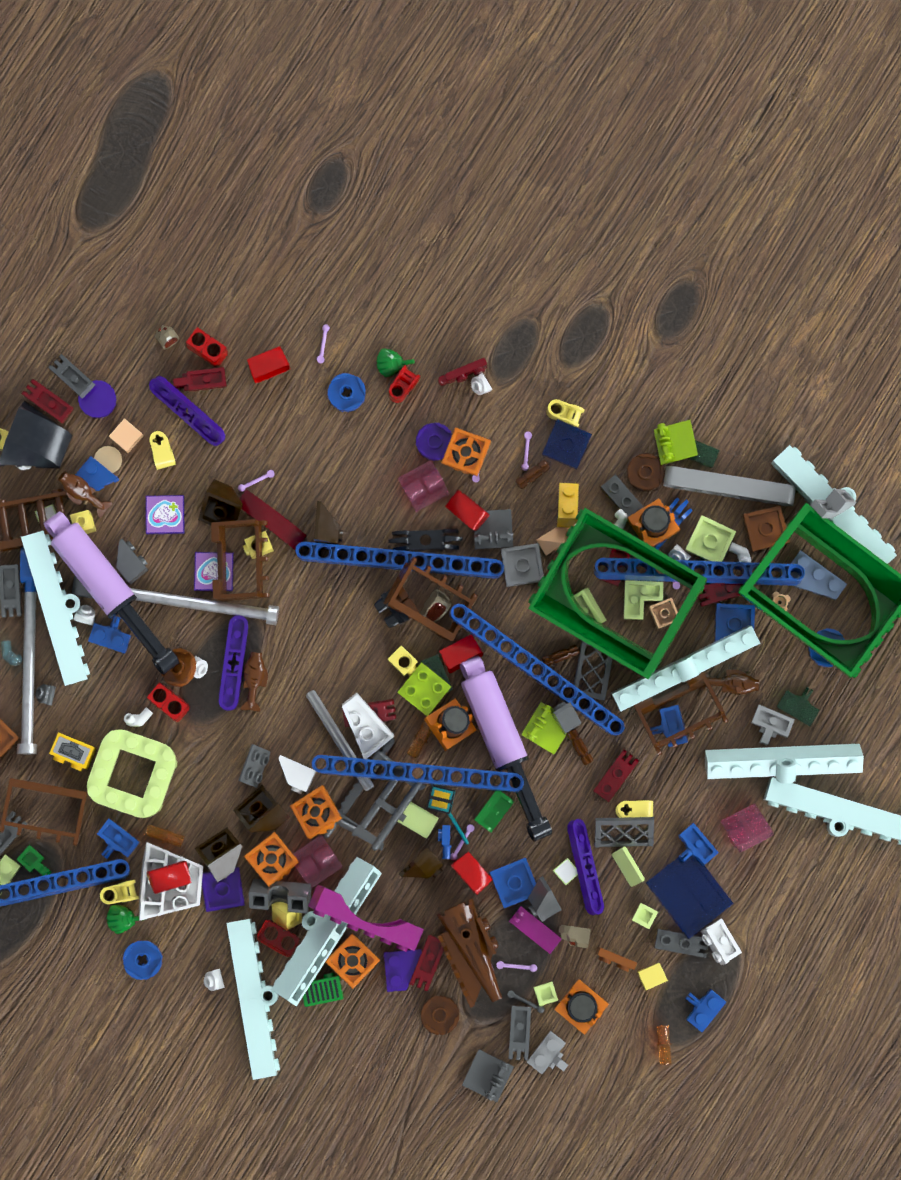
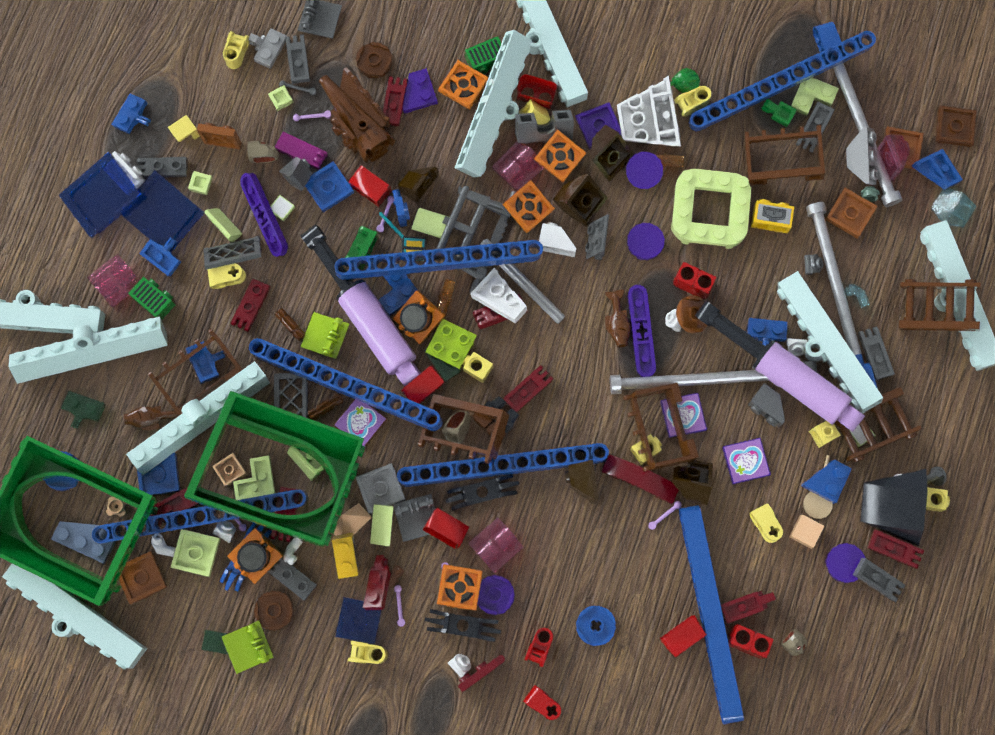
camera: 170 degrees right, 5 degrees down
(79, 490) = (838, 462): reddish brown animal -> none
(117, 839) = (708, 147): blue plate -> none
(131, 960) = (650, 41): blue plate -> none
(137, 720) = (719, 259): white arm -> none
(169, 877) = (651, 117): red piece -> none
(178, 403) = (761, 574): dark purple piece -> none
(188, 828) = (644, 170): none -> dark purple tile
(206, 755) = (645, 241): none -> dark purple tile
(213, 980) = (587, 46): white plate -> none
(236, 381) = (711, 615): none -> blue beam
(320, 359) = (633, 690): lavender hinge -> none
(332, 904) = (425, 118): magenta arch -> none
(359, 629) = (527, 389): none -> dark red hinge
(390, 362) = (557, 668): green piece -> none
(414, 335) = (539, 701): none -> red piece
(460, 414) = (450, 625): none -> black piece
(461, 754) = (401, 292): none -> blue plate
(527, 528) = (381, 525): none -> yellowish green slope
(529, 632) = (361, 421): none -> tile
(542, 472) = (377, 585): none -> dark red hinge
(566, 717) = (307, 345): dark grey slope -> none
(582, 1007) = (246, 91): piece -> none
(582, 1059) = (235, 46): none -> light yellow piece
(664, 1044) = (163, 76): clear orange axle -> none
(712, 802) = (151, 298): none -> green brick
(729, 486) = (185, 613): light grey beam -> none
(749, 924) = (100, 195): none -> clear blue piece
(771, 724) = (107, 384): light grey hinge -> none
(835, 504) = (71, 612): light grey slope -> none

